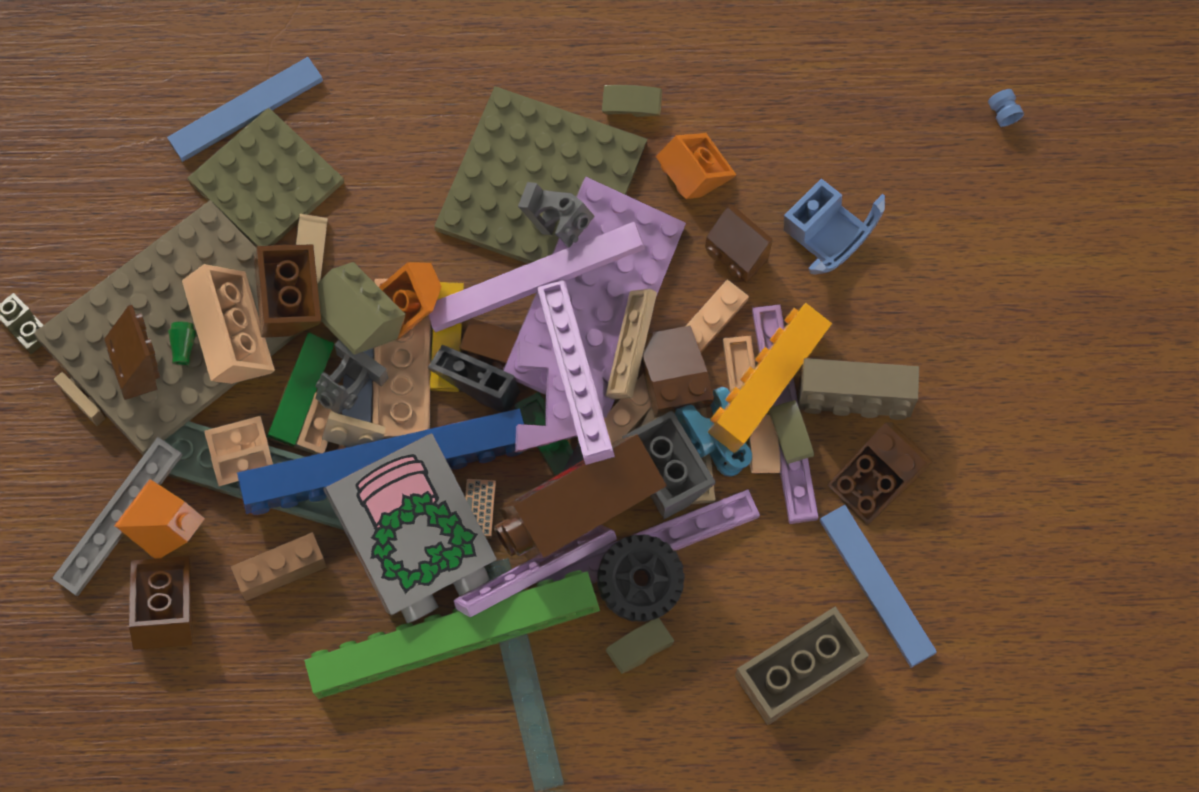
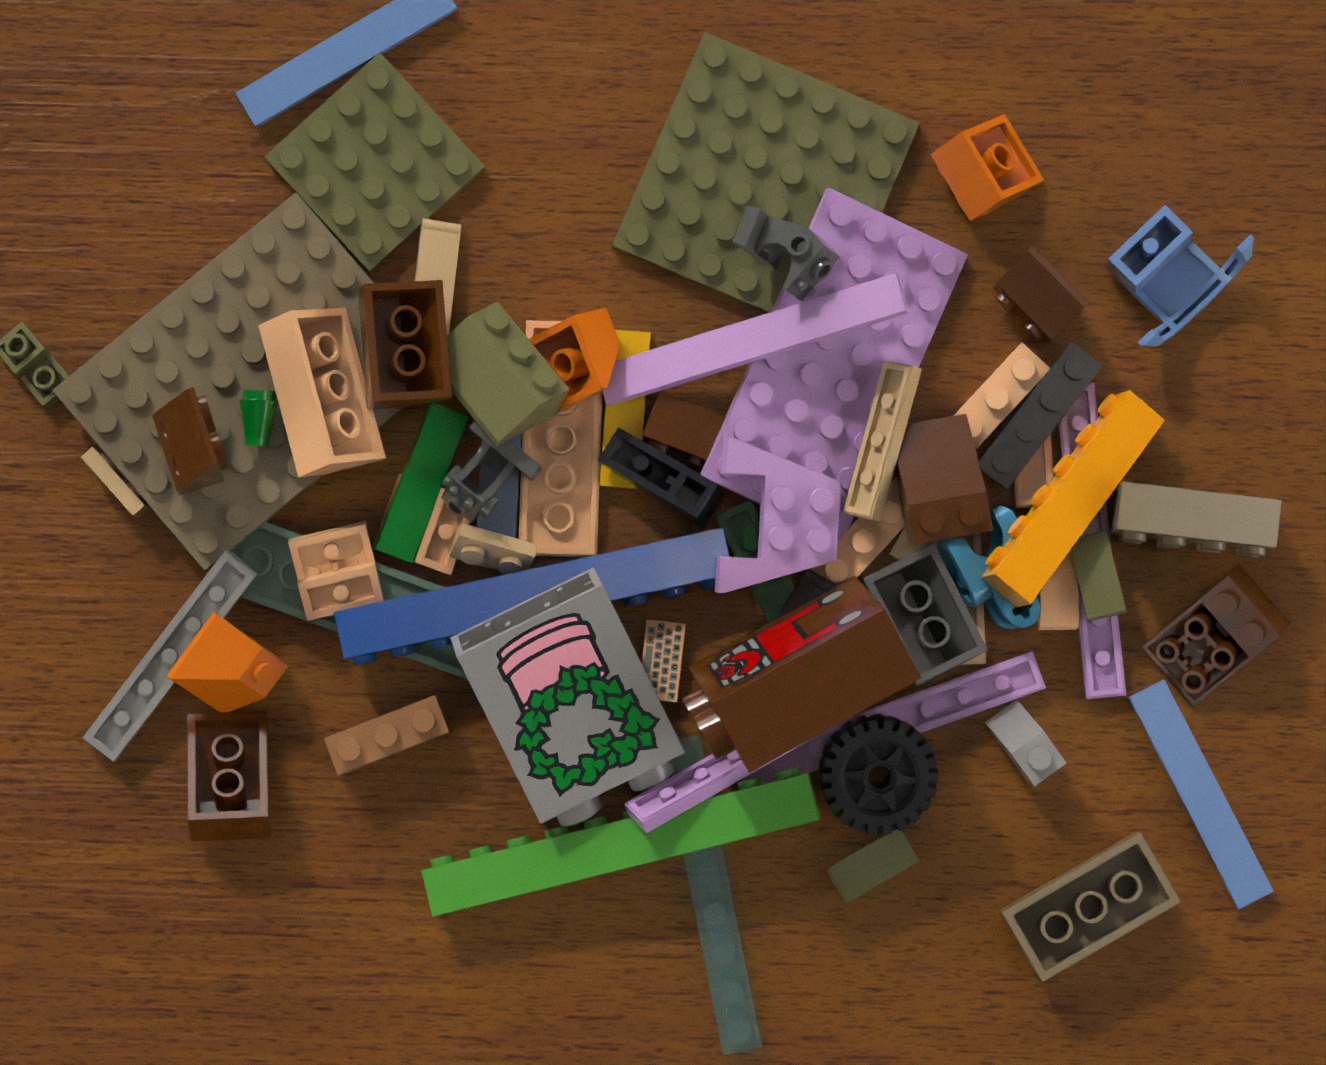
camera: 10 degrees right, 15 degrees up
(575, 373) = (803, 500): lavender tile -> none
(632, 100) = (901, 62): olive slope -> none
(742, 326) = (1039, 415): none -> black plate
(748, 554) = (1025, 743): none -> light grey slope

